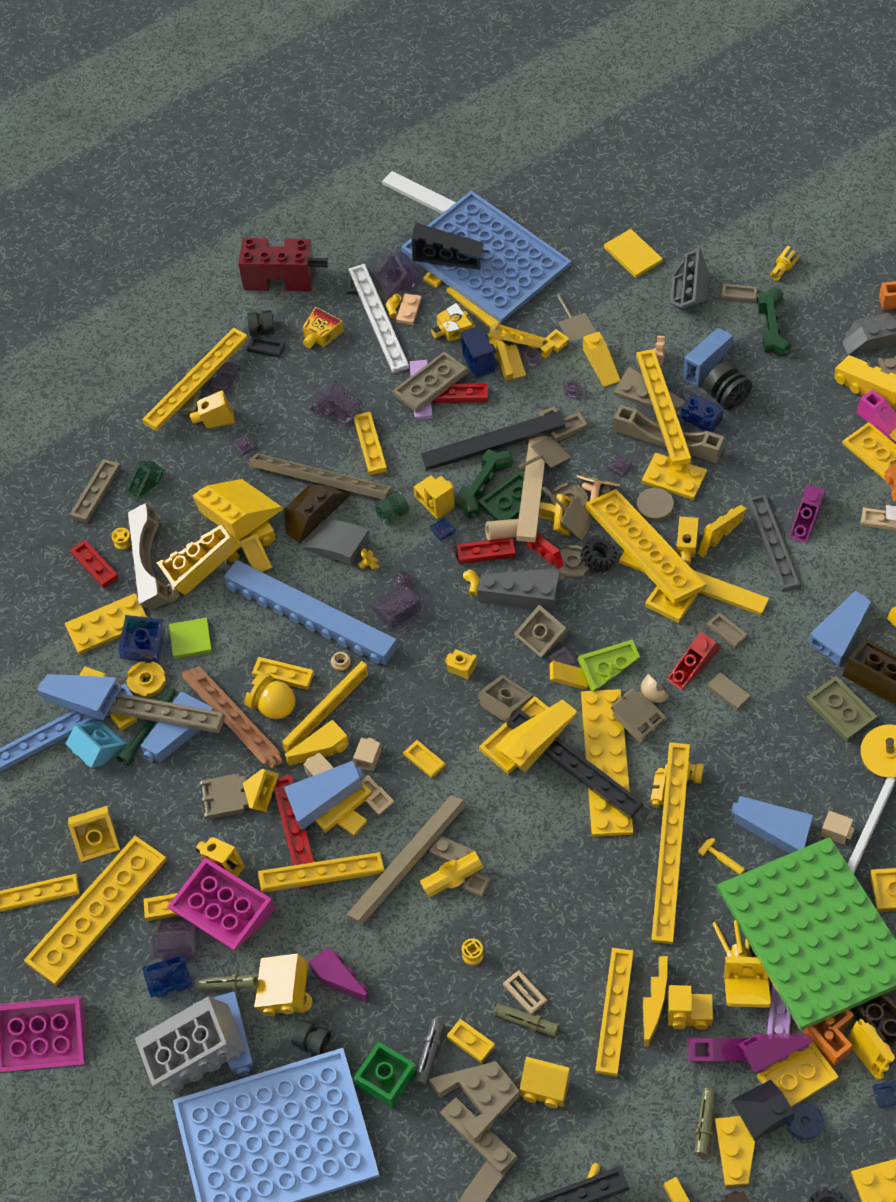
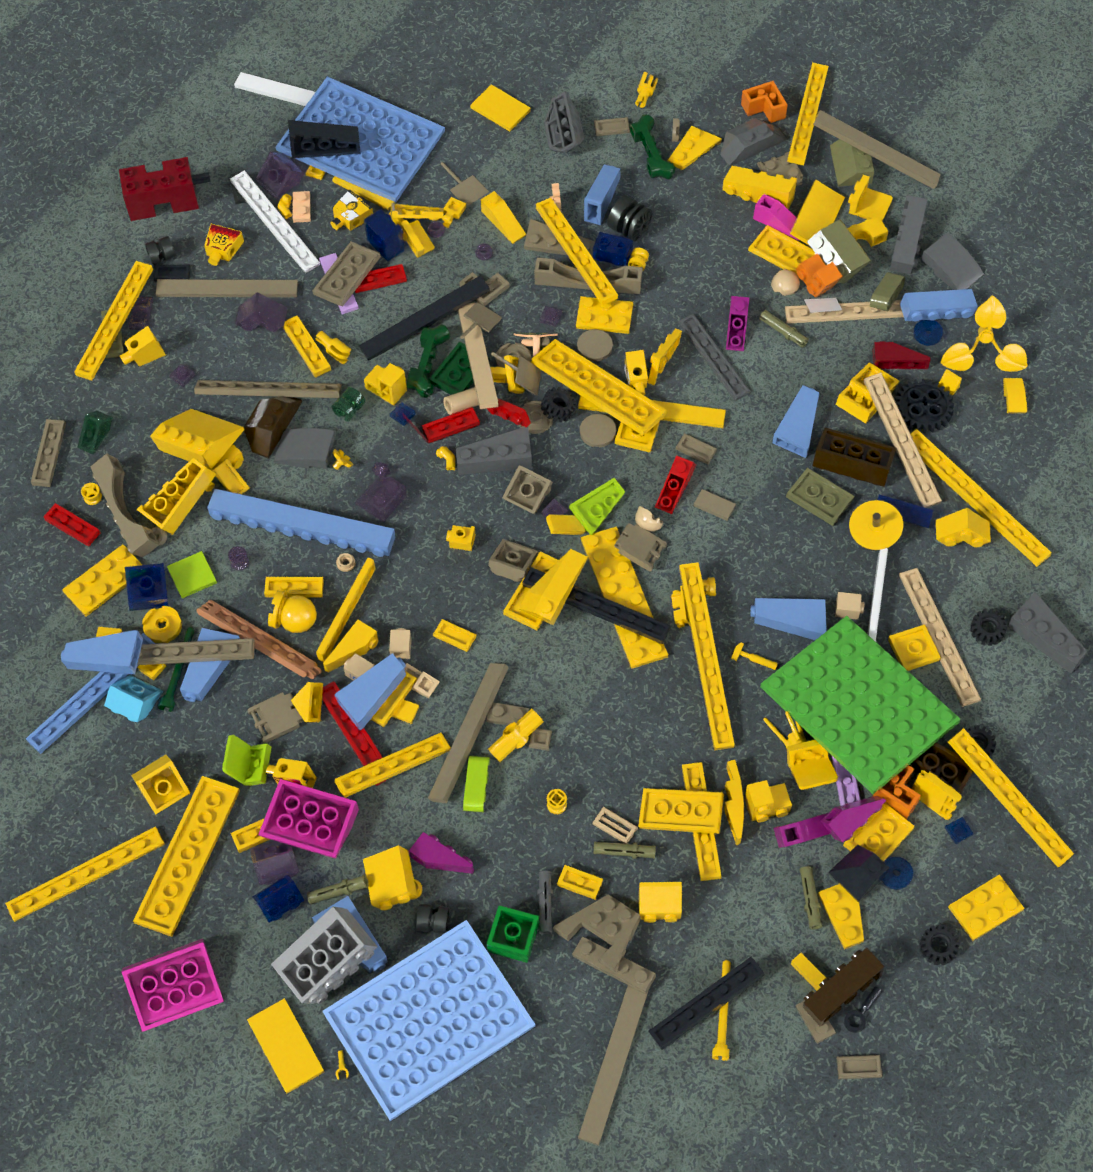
camera: 20 degrees left, 5 degrees up
(128, 1125) = (285, 1046): none -> yellow tile
(175, 1162) = (341, 1065): none -> yellow hand
(179, 831) = (246, 762): none -> lime bracket
(240, 637) = (242, 561): none -> clear purple wheel
(313, 371) = (225, 288): none -> dark tan tile
(396, 450) = (334, 347): none -> yellow arm
(397, 912) = (476, 784): none -> lime beam
(596, 995) = (681, 810): none -> yellow tile
(631, 589) = (597, 430): none -> dark tan tile
(726, 427) = (639, 257): none -> yellow wheel
(803, 308) = (675, 133): none -> dark tan tile
(815, 328) = (692, 146): none -> yellow wing
(860, 535) = (789, 332): none -> olive pin
(871, 483) = (785, 282): none -> tan hair

